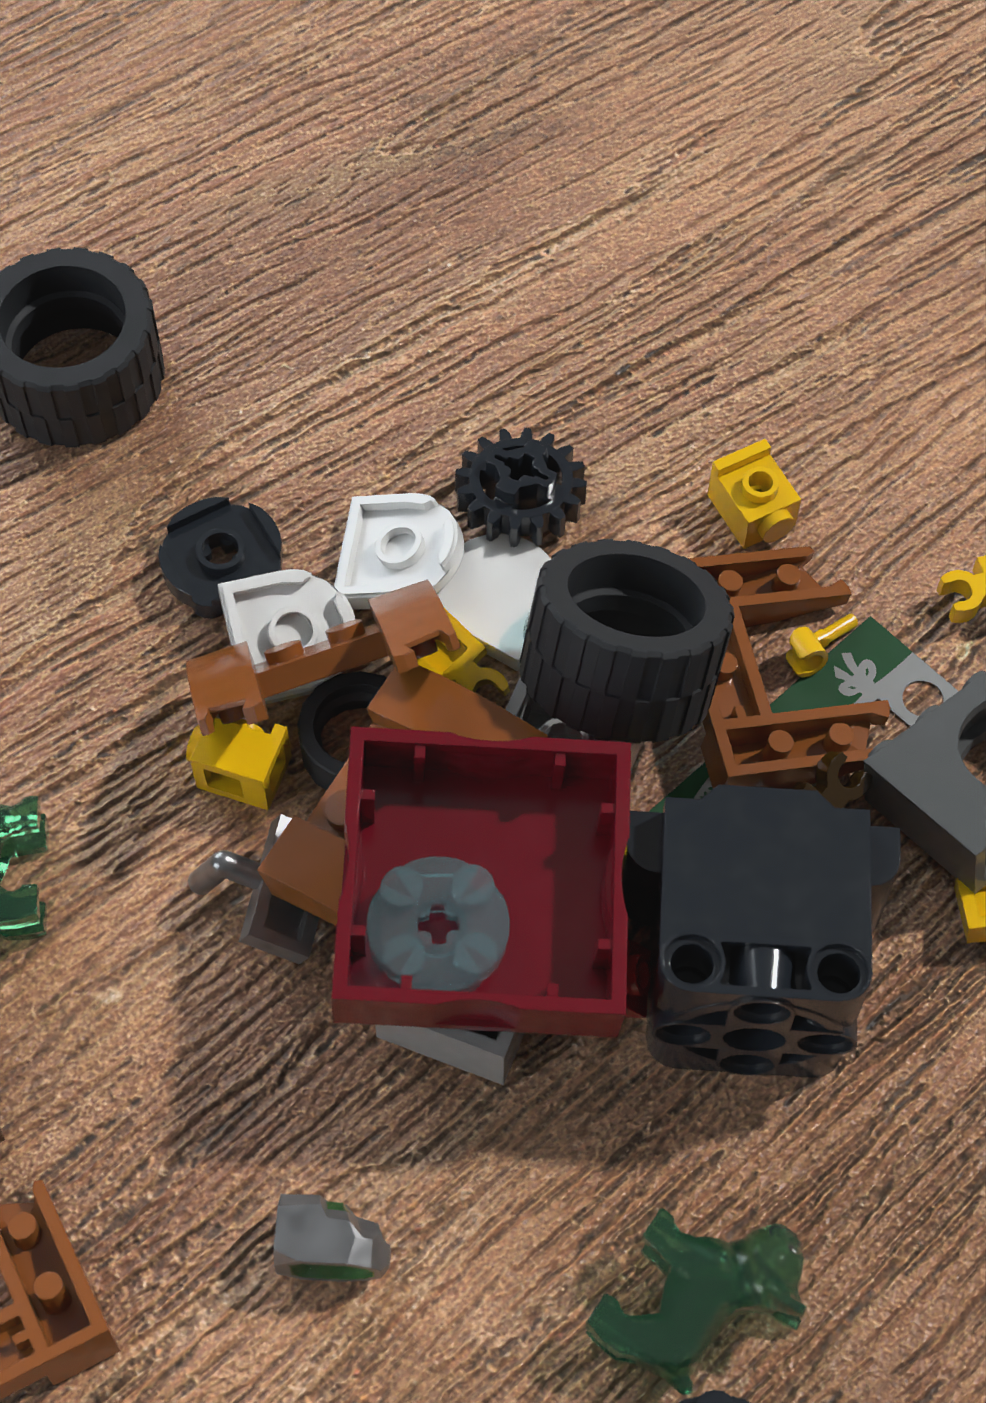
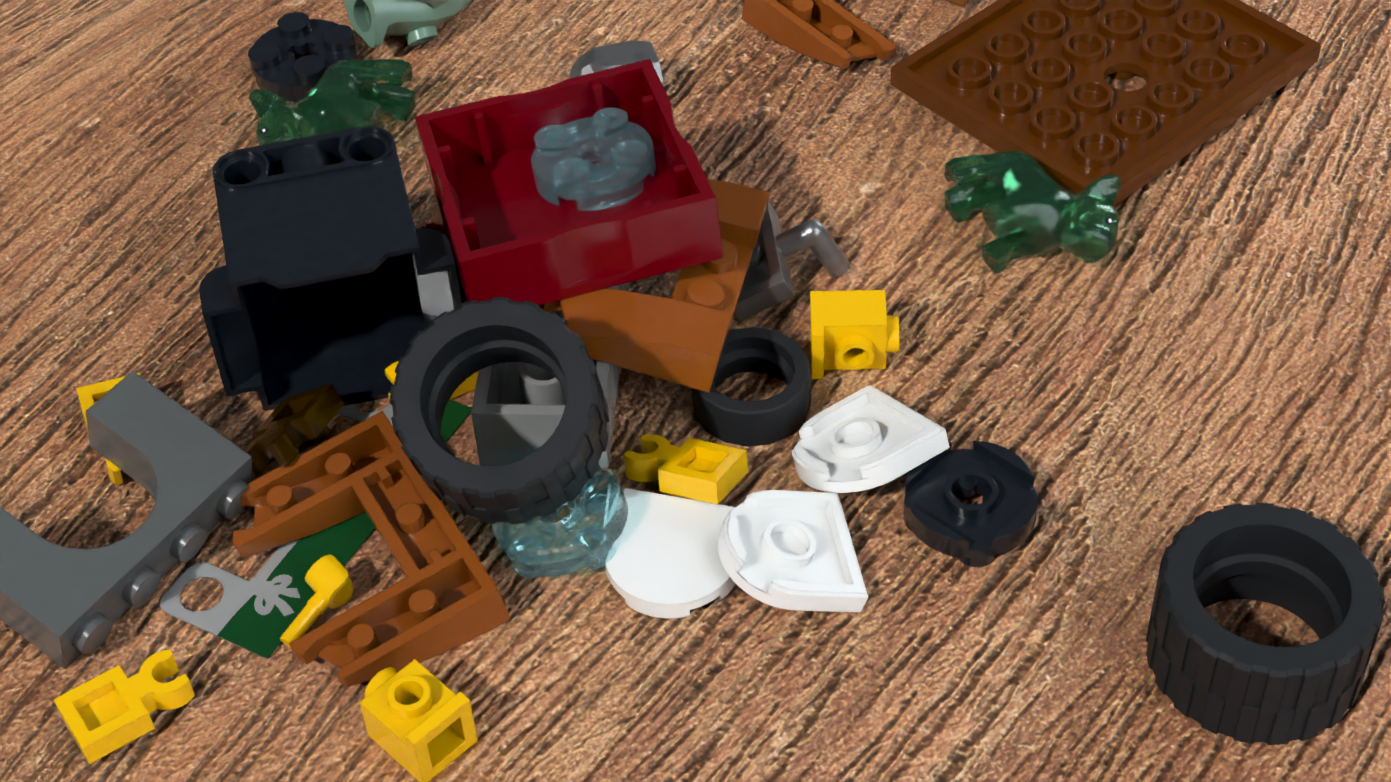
camera: 165 degrees right, 15 degrees down
(237, 688) = (748, 413): dark orange wedge -> none
(520, 487) = (692, 638): black gear -> none

